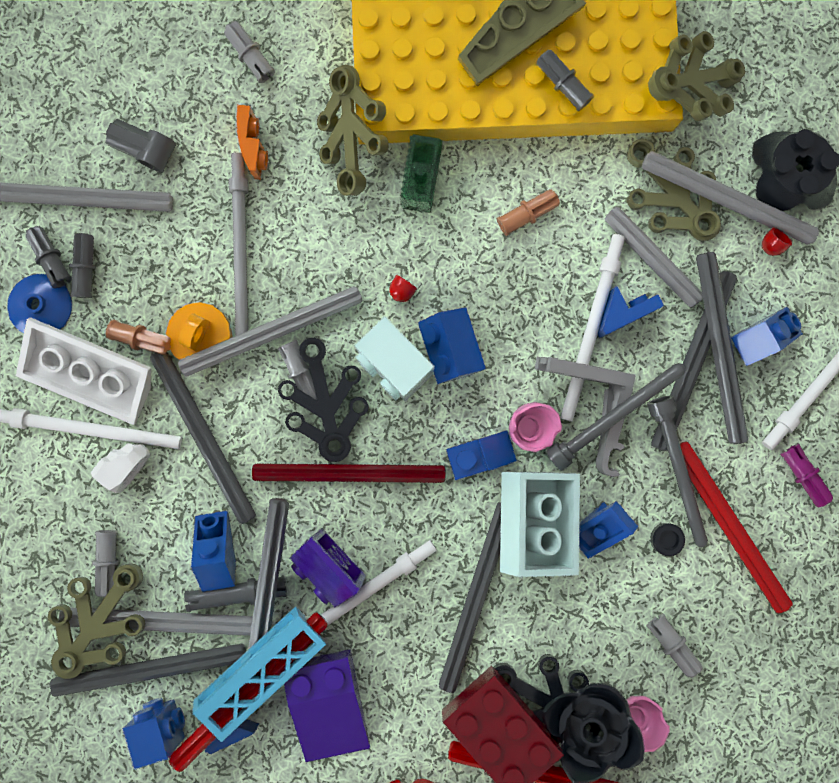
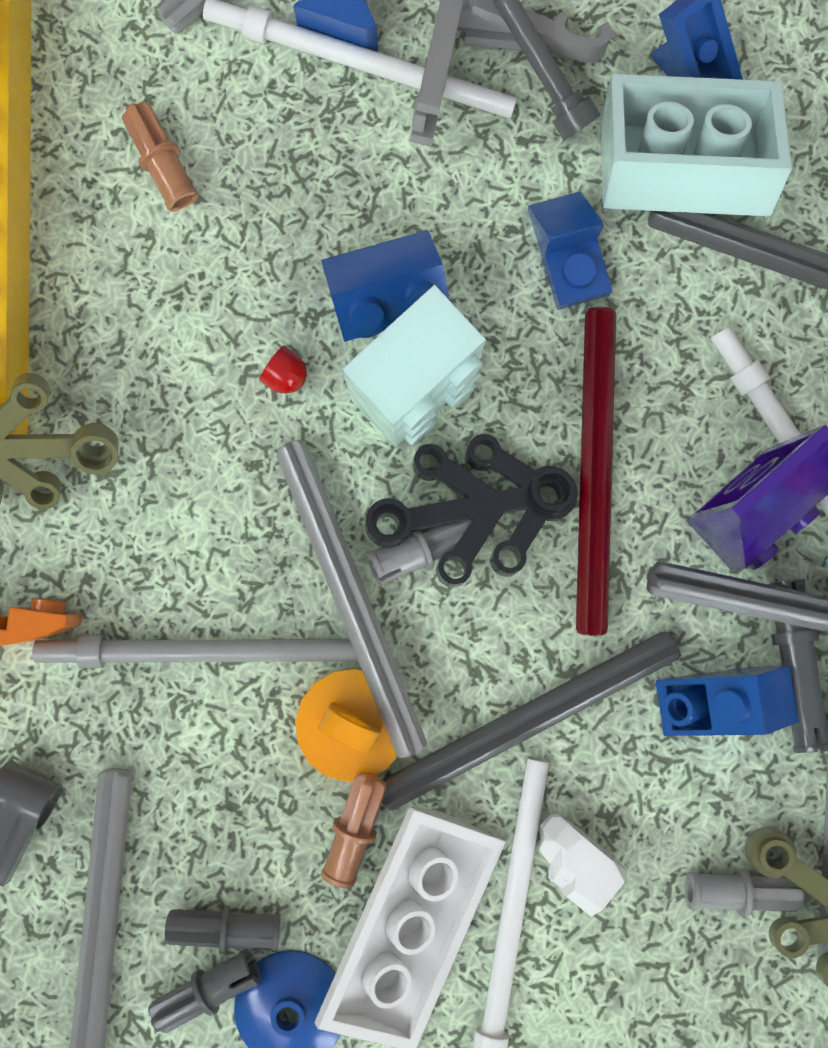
camera: 85 degrees left, 0 degrees up
(420, 173) = (84, 328): clear green brick -> none
(534, 426) = (525, 154): bright pink hair -> none

